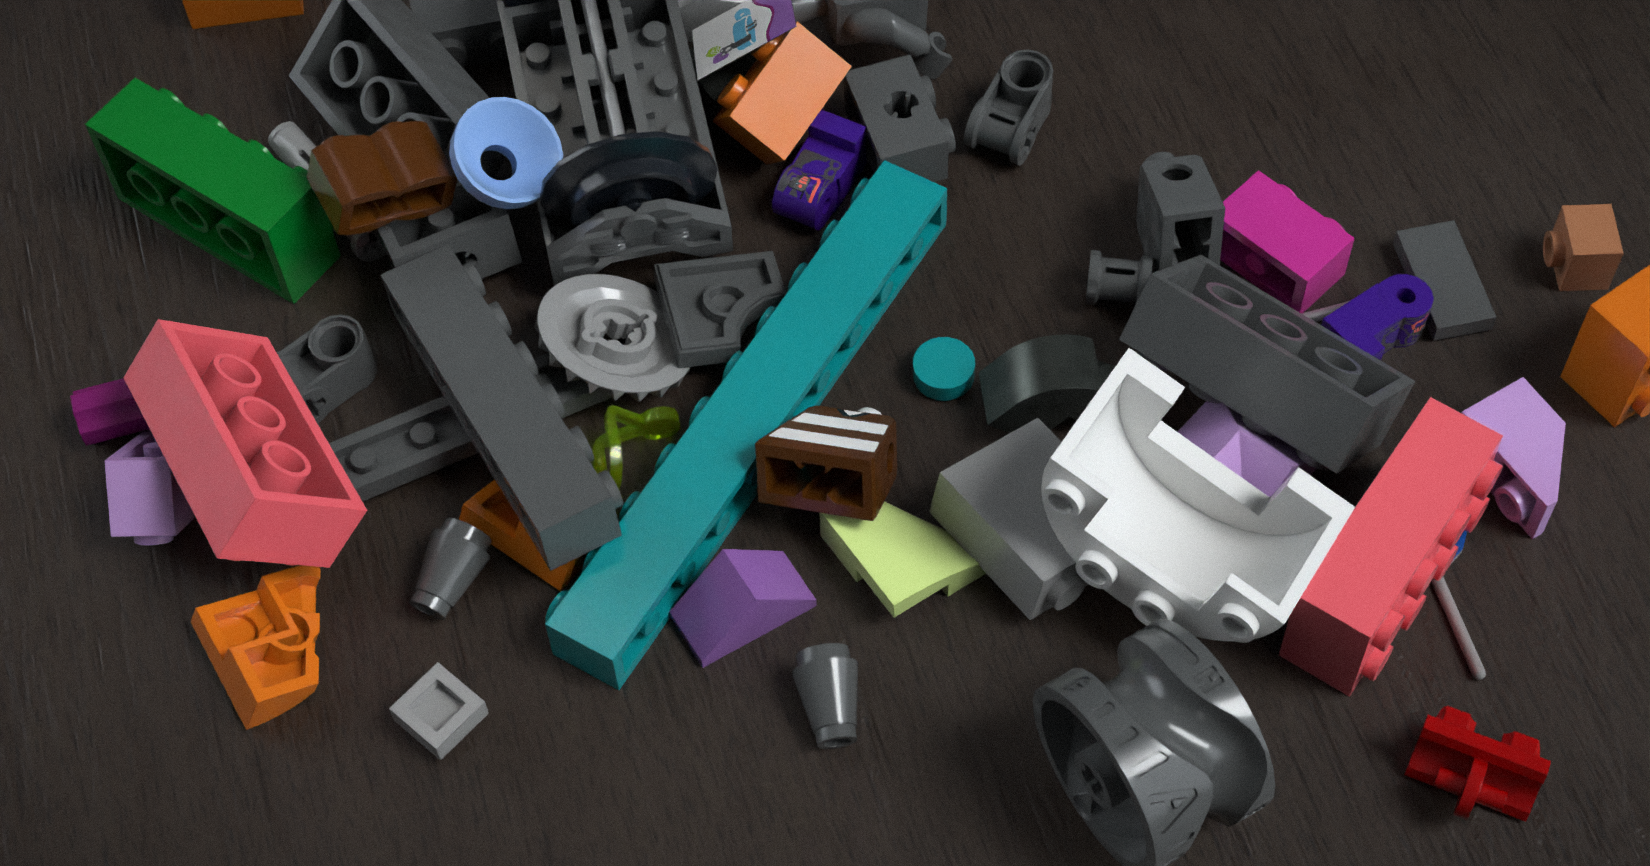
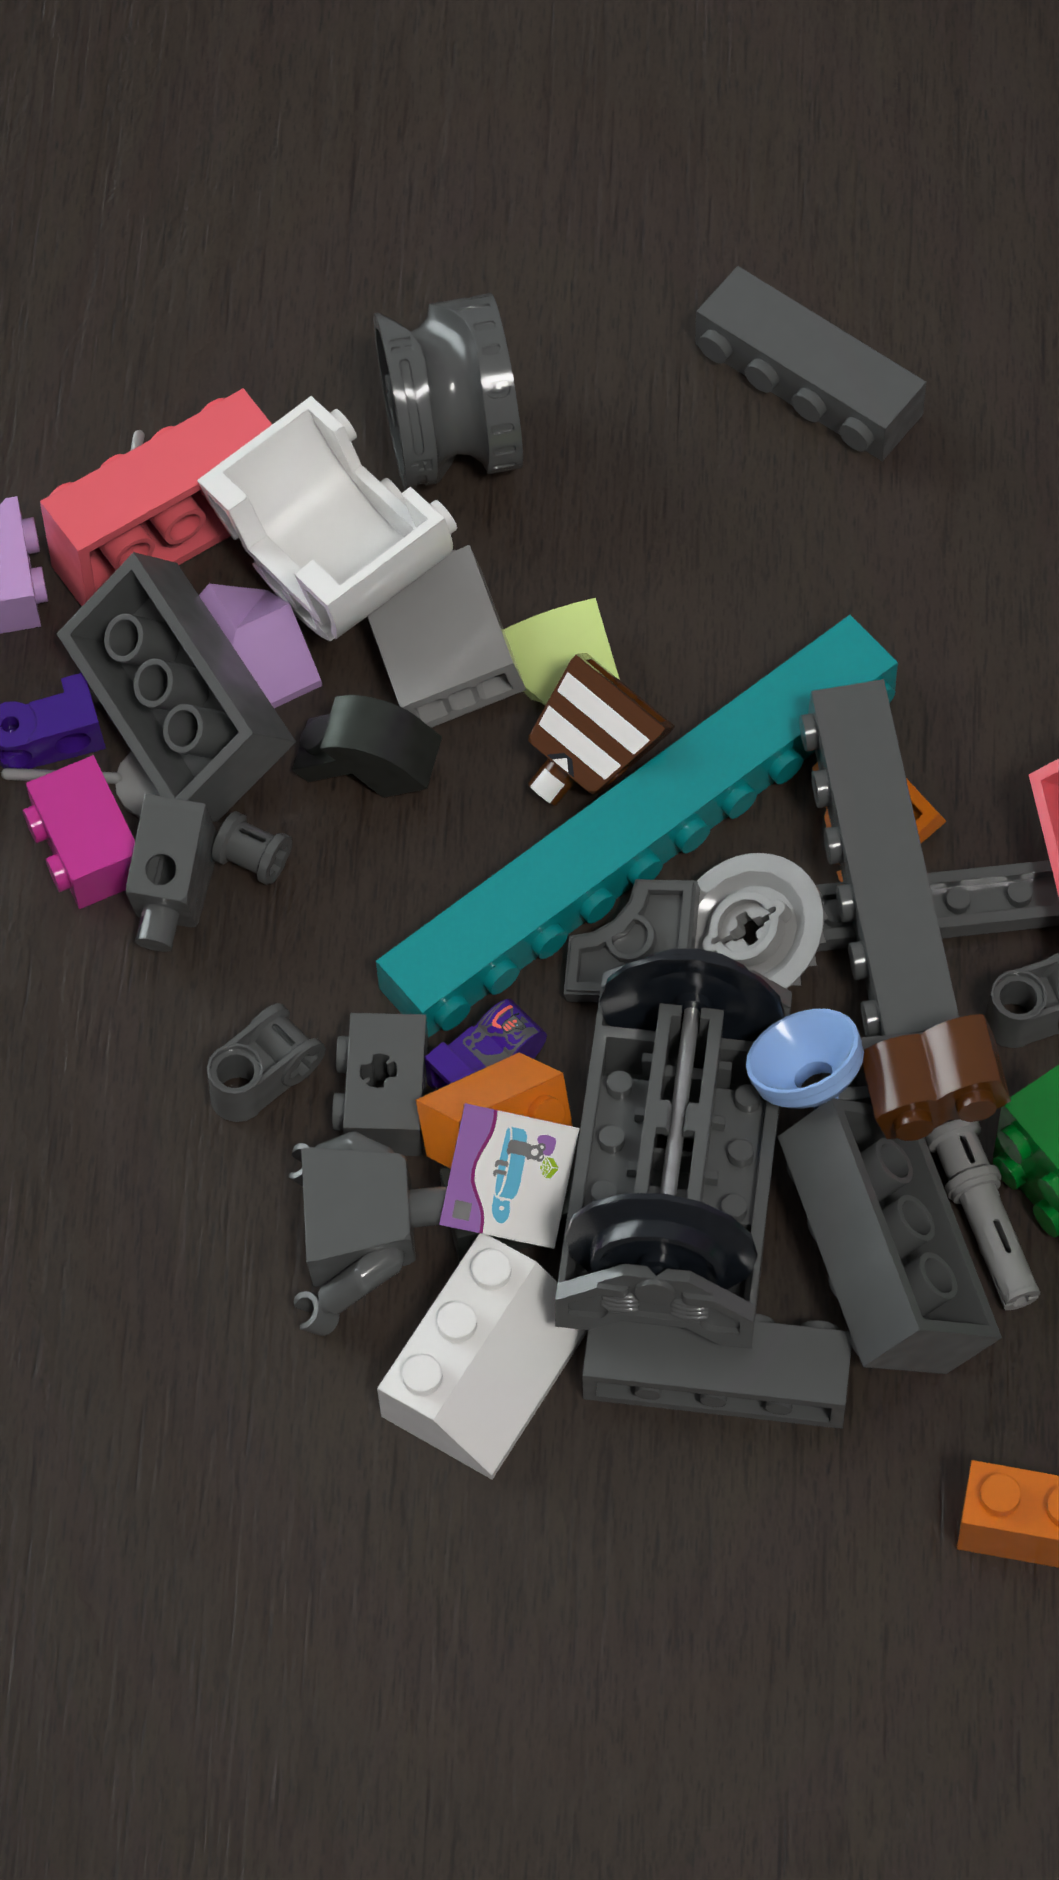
camera: 160 degrees left, 5 degrees up
(439, 711) = (1006, 653): light grey plate -> none
(449, 566) = (964, 774): dark grey cone -> none
(651, 424) = (735, 846): clear neon green piece -> none
(739, 601) = (712, 665): medium lavender slope -> none
(828, 691) = (674, 567): dark grey cone -> none
(943, 368) = (451, 827): teal tile -> none
(1476, 767) = (168, 341): red hips -> none

